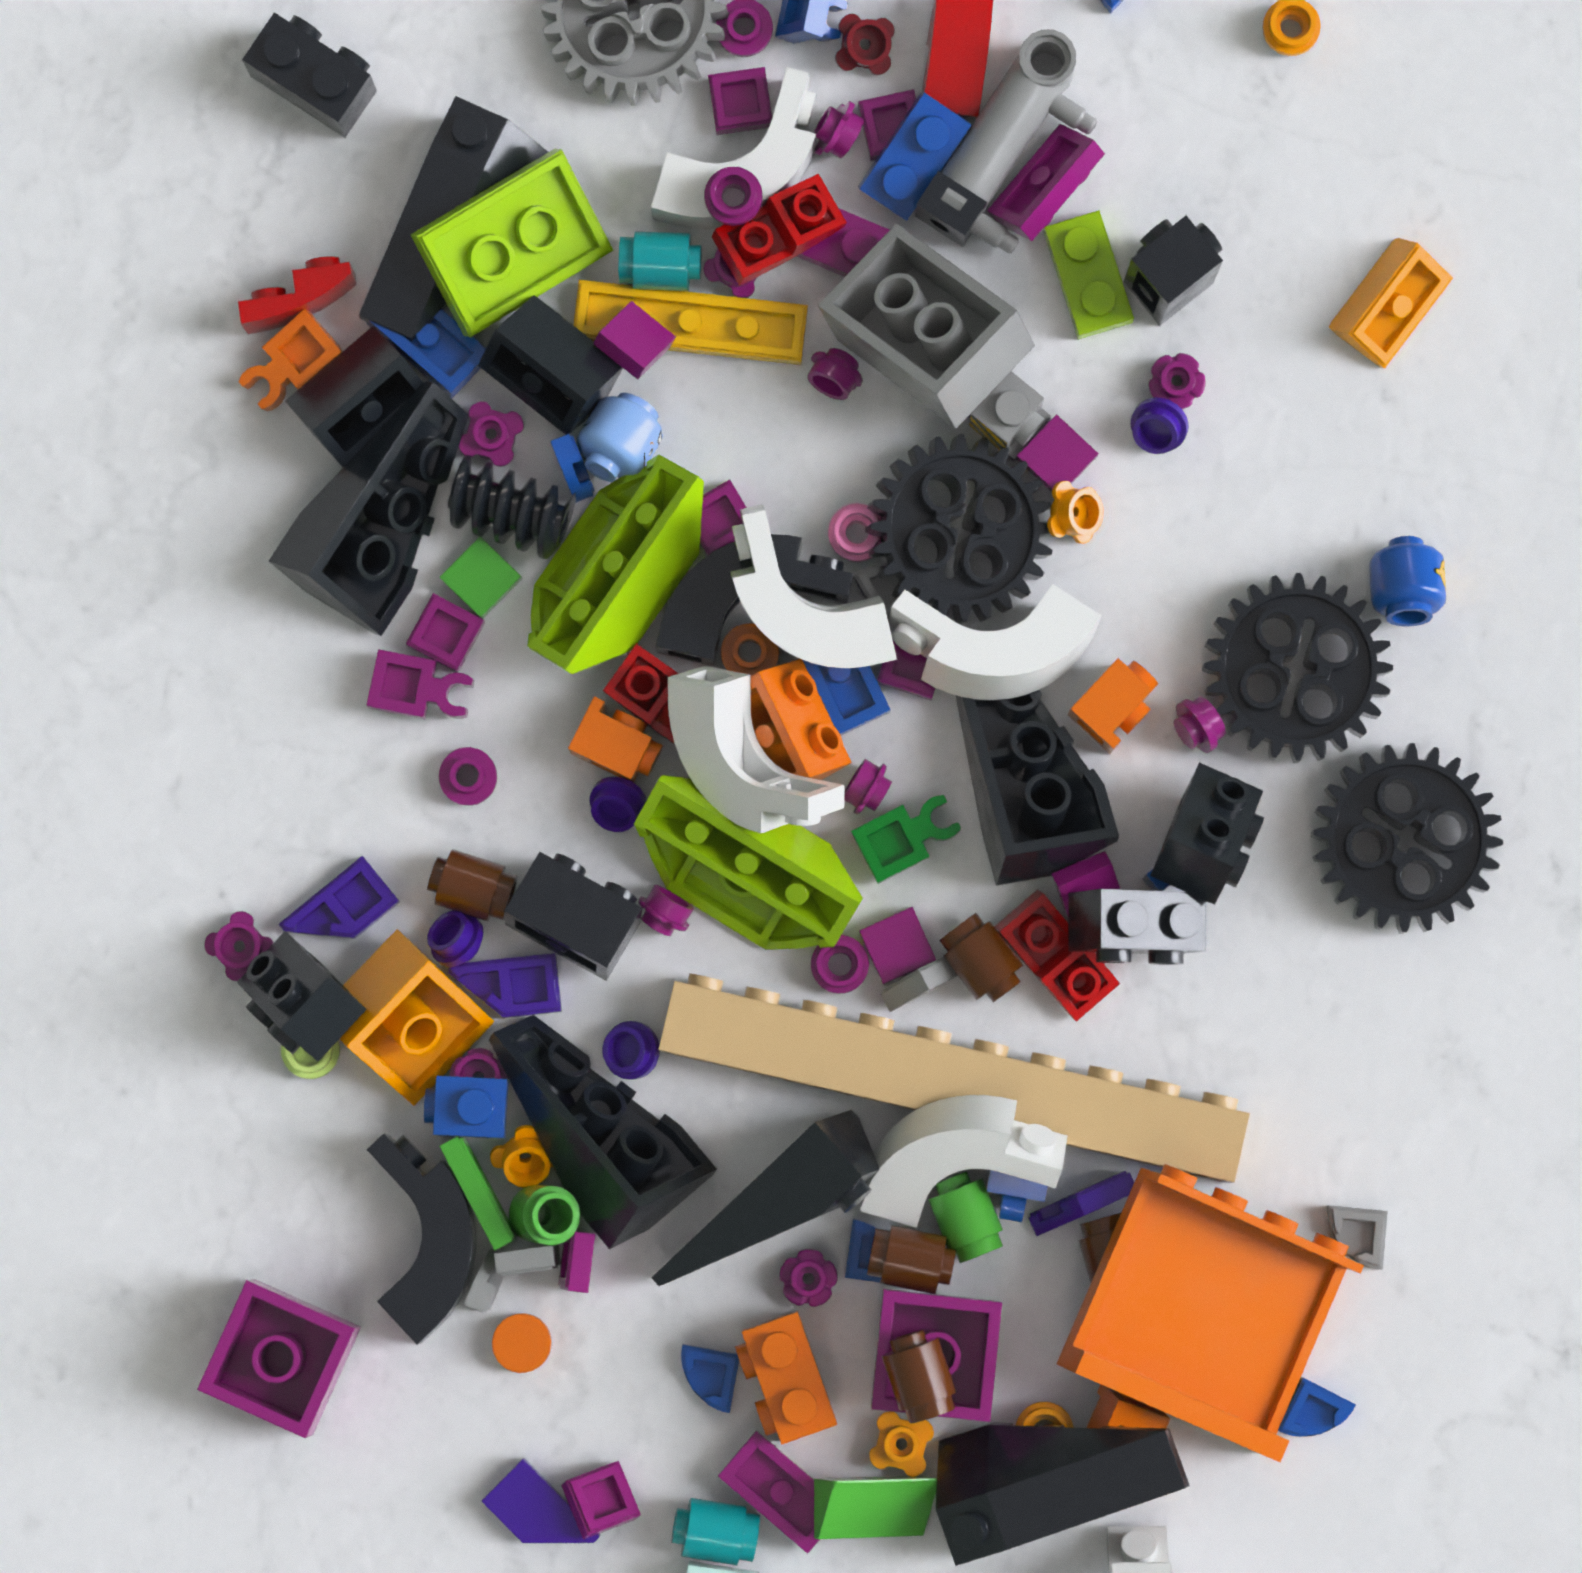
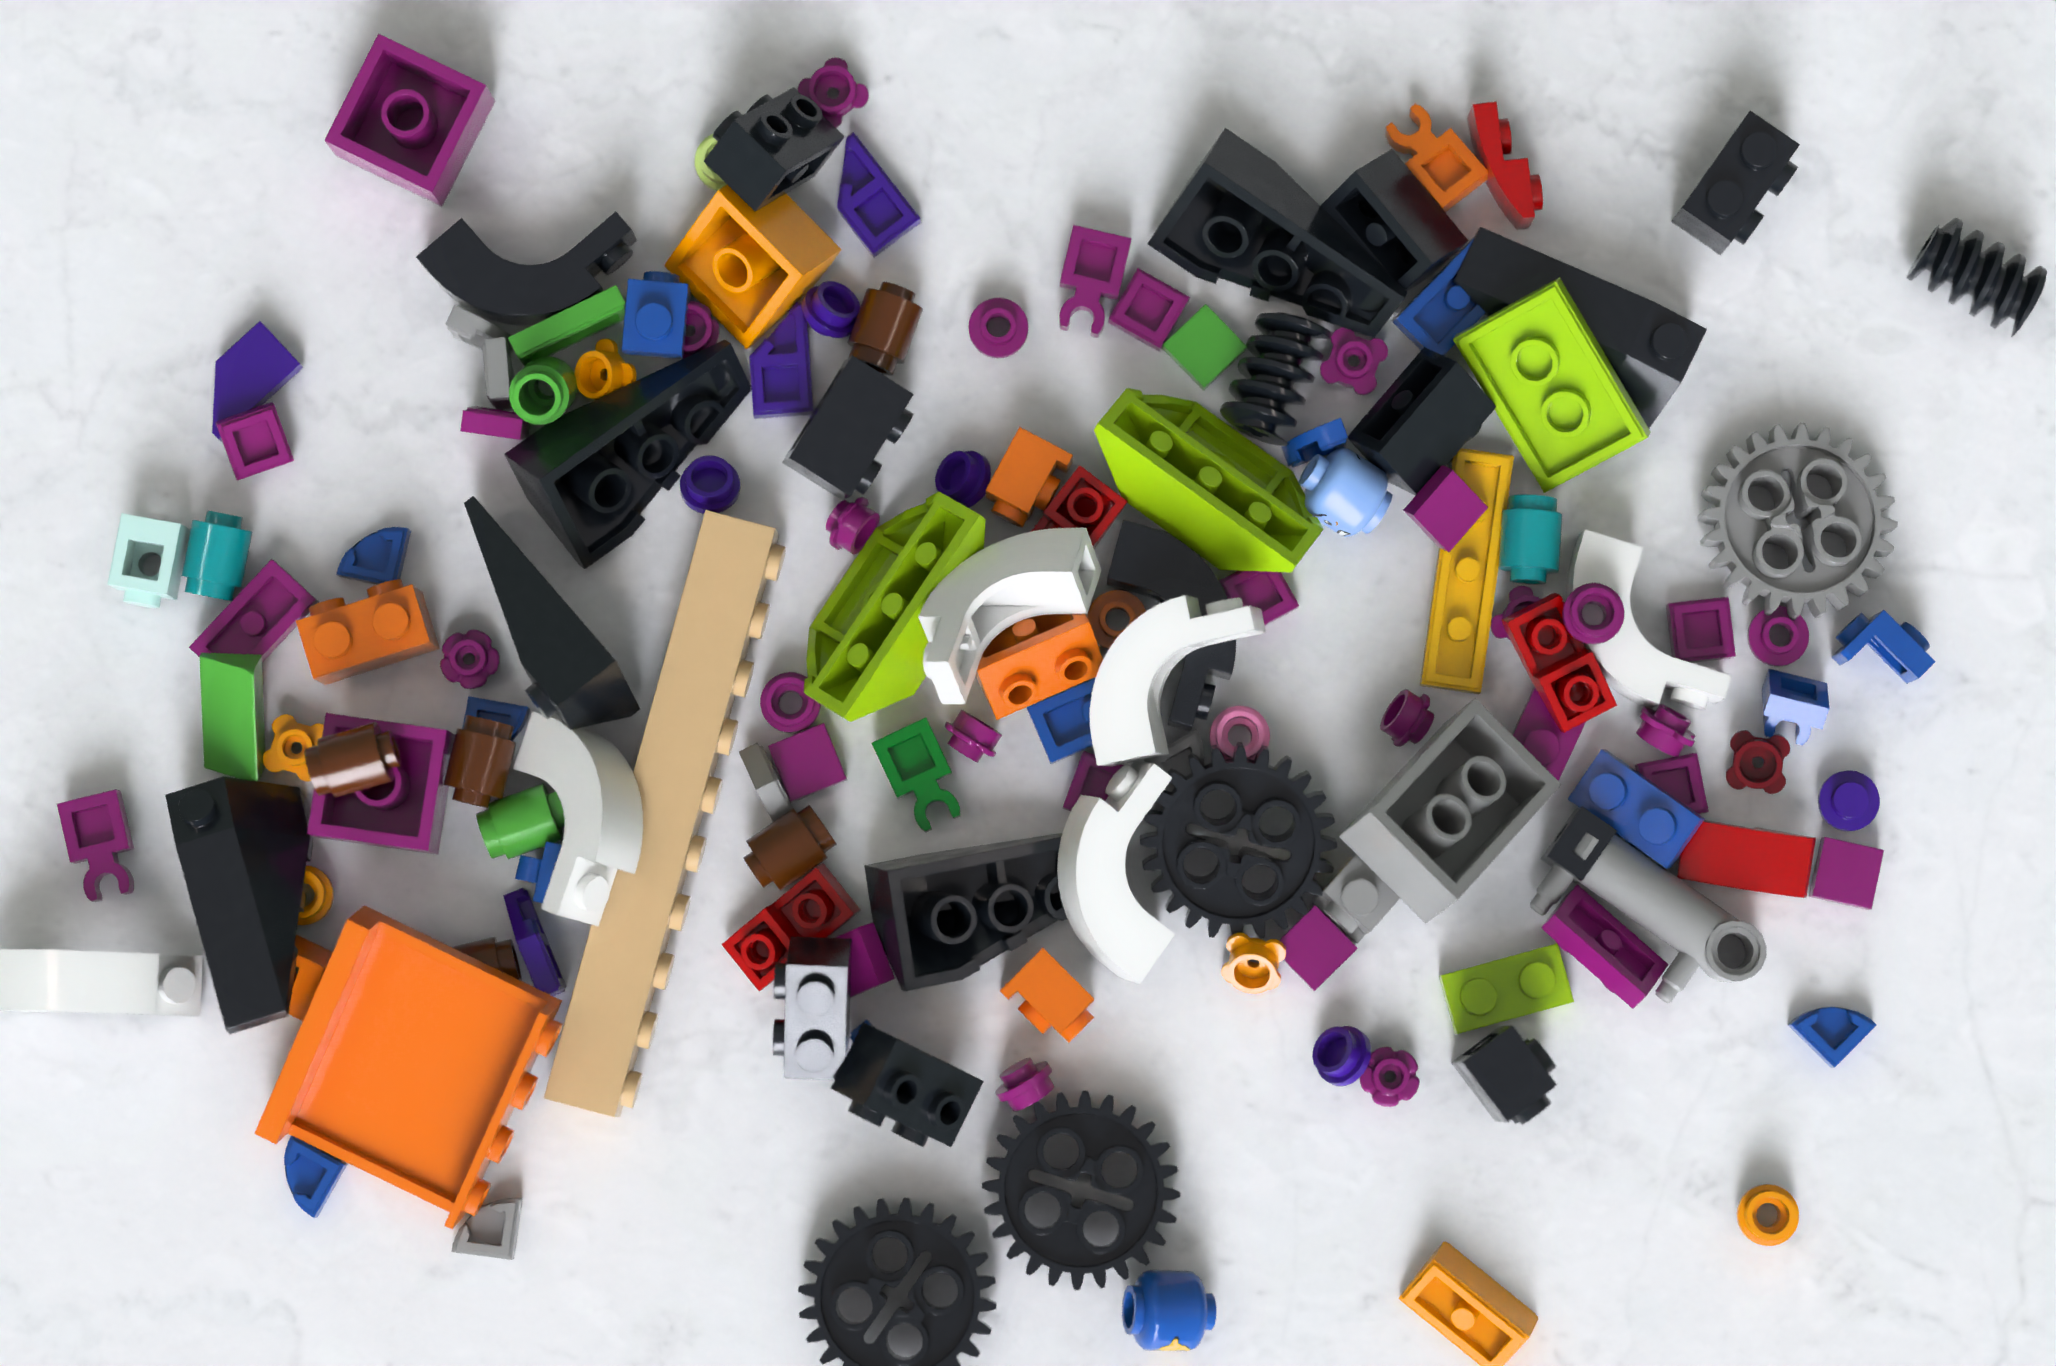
camera: 90 degrees right, 0 degrees up
(522, 1343) = (418, 367): orange tile -> none

